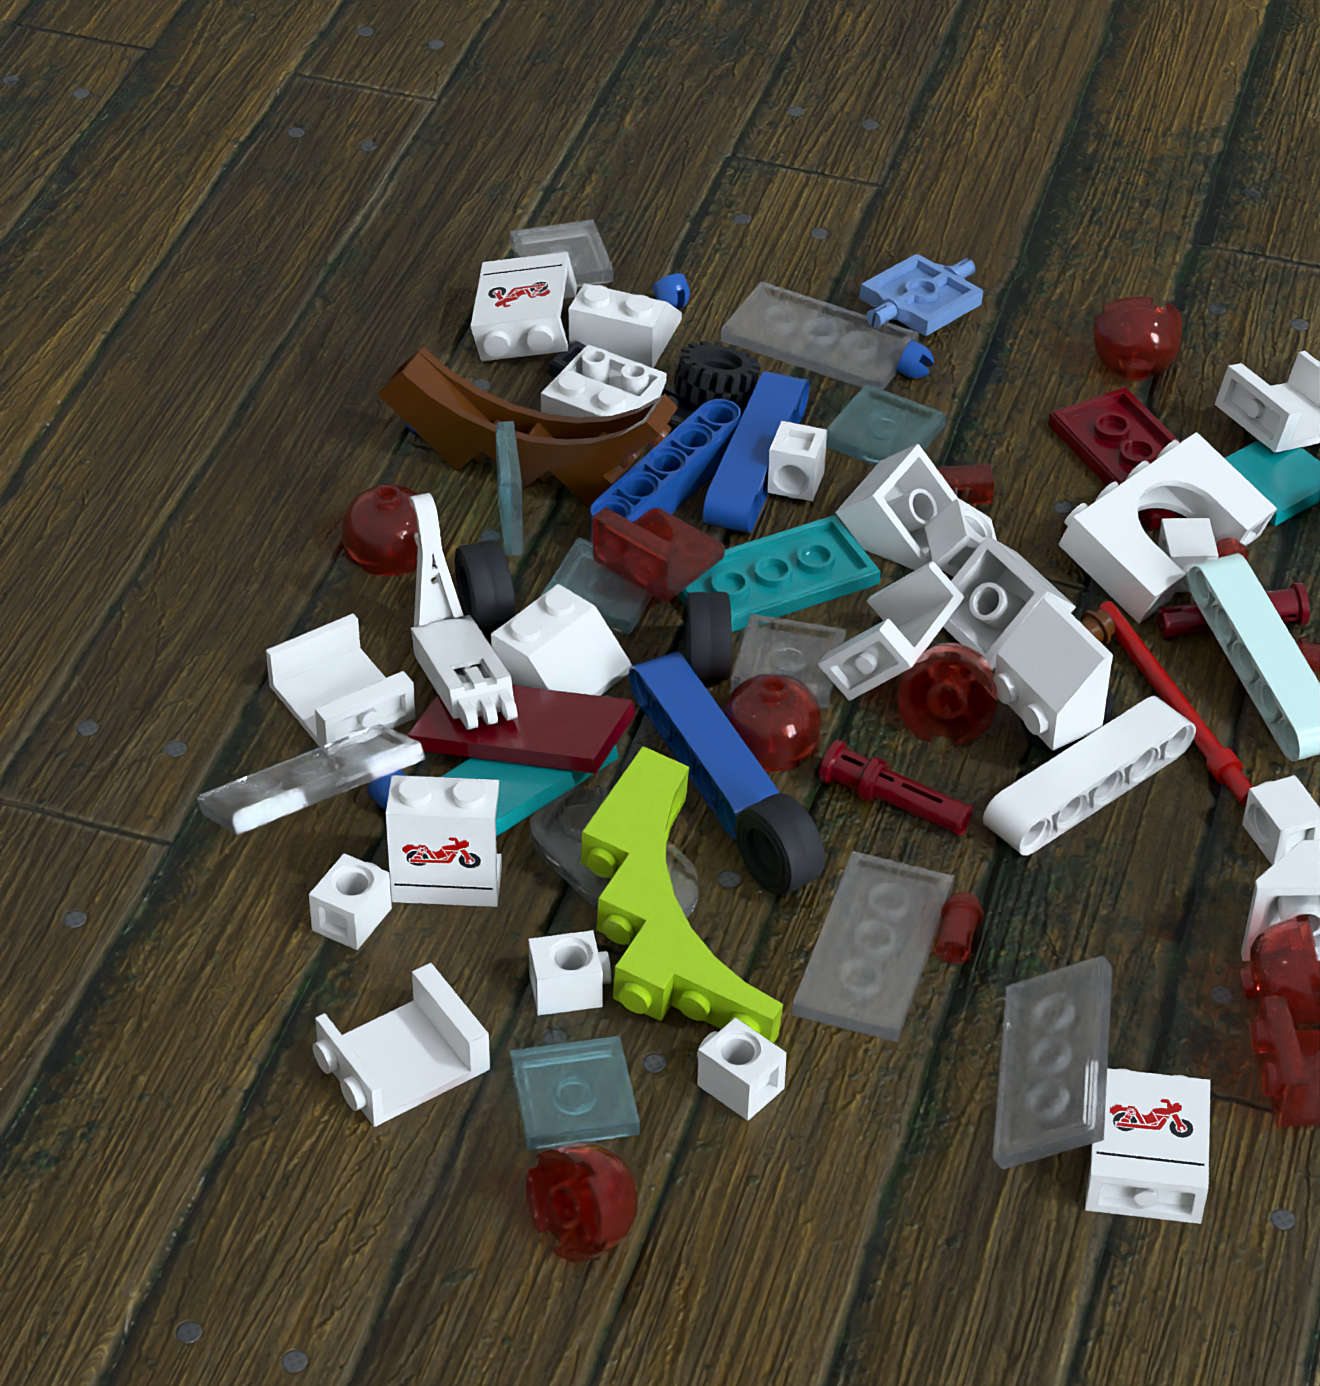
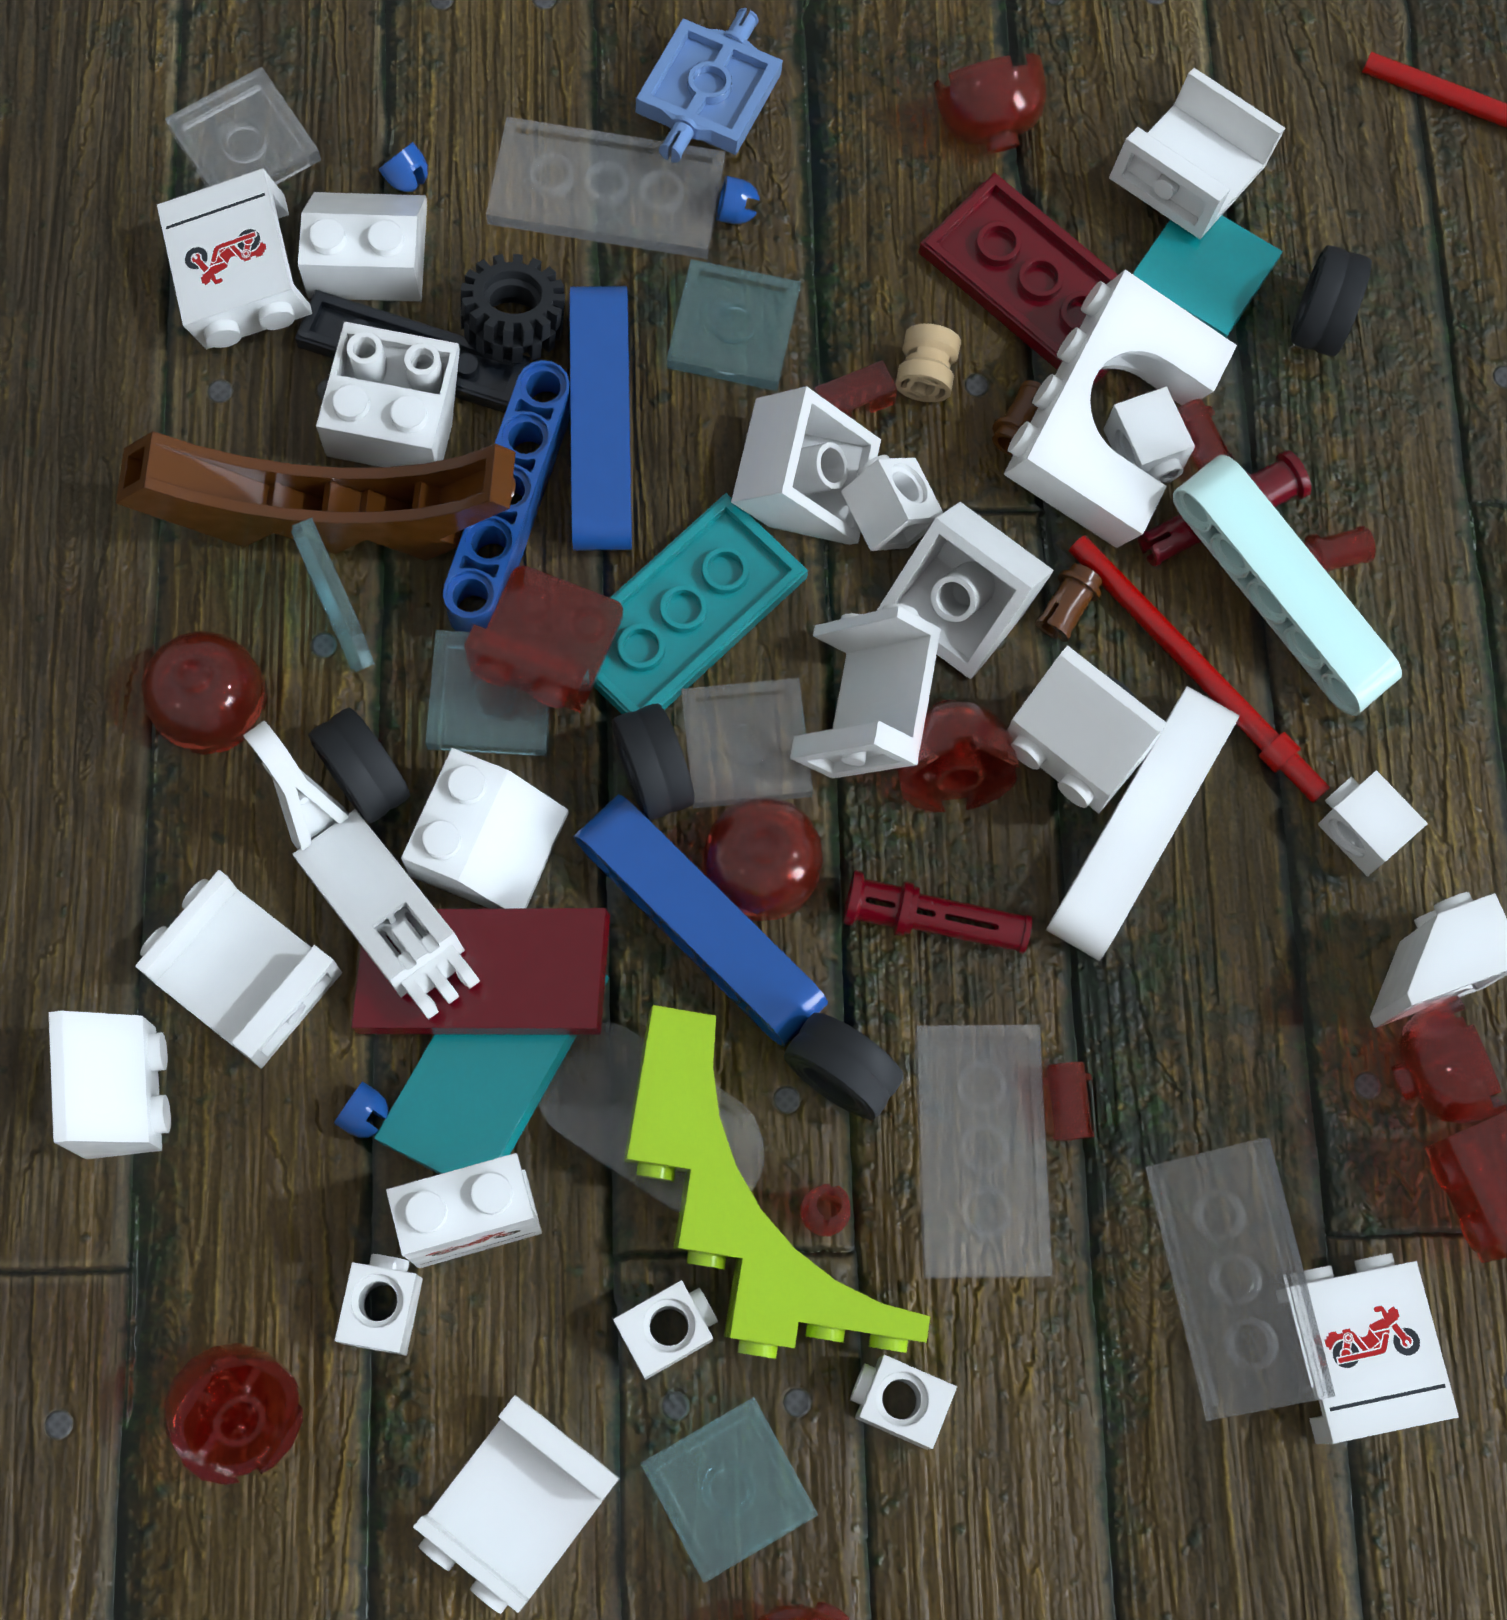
camera: 25 degrees left, 30 degrees up
(211, 712) = (107, 1084): none -> white slope
(213, 913) = (232, 1412): none -> clear red cylinder
(309, 778) = (262, 1142): clear tile -> none
(729, 937) = (814, 1220): none -> clear red pin
(797, 461) = (659, 432): white brick -> none
(1026, 475) = (929, 354): none -> tan wheel

